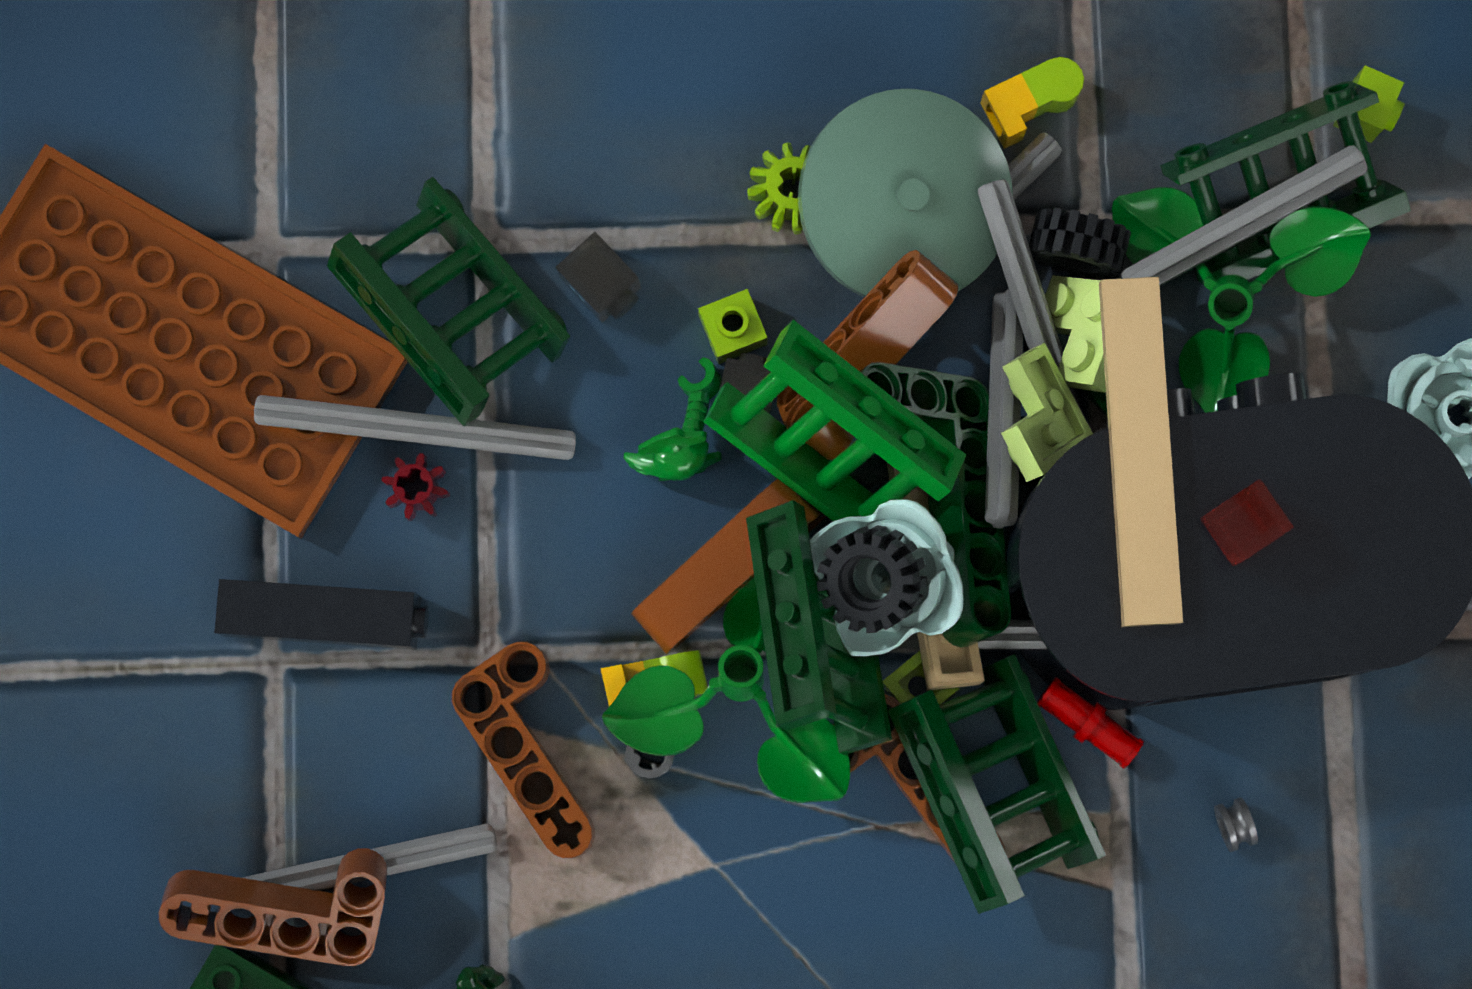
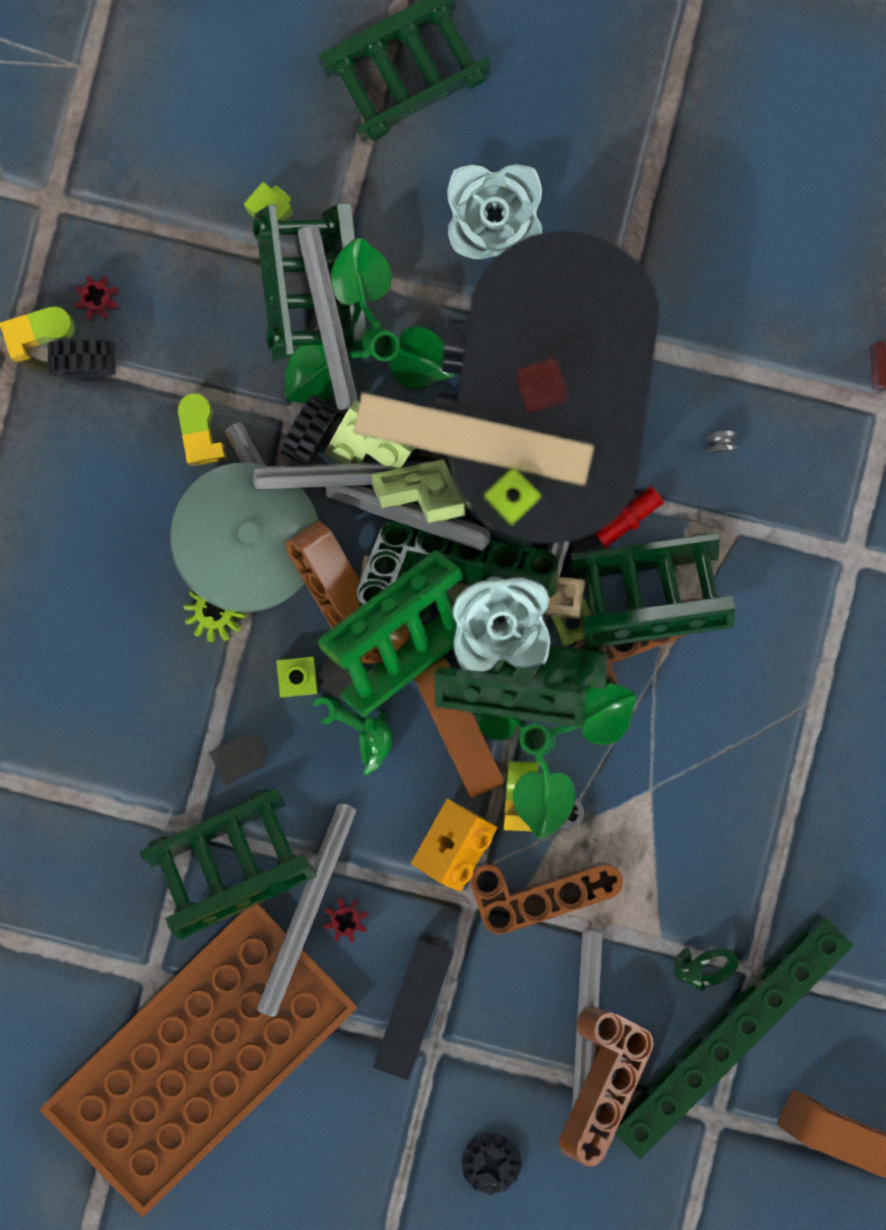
camera: 80 degrees left, 5 degrees up
(154, 786) = (497, 1147): none -> black gear
(559, 605) = (454, 845): none -> light orange brick
(845, 597) = (513, 653): black tyre -> none
(1058, 537) = (512, 511): none -> lime plate

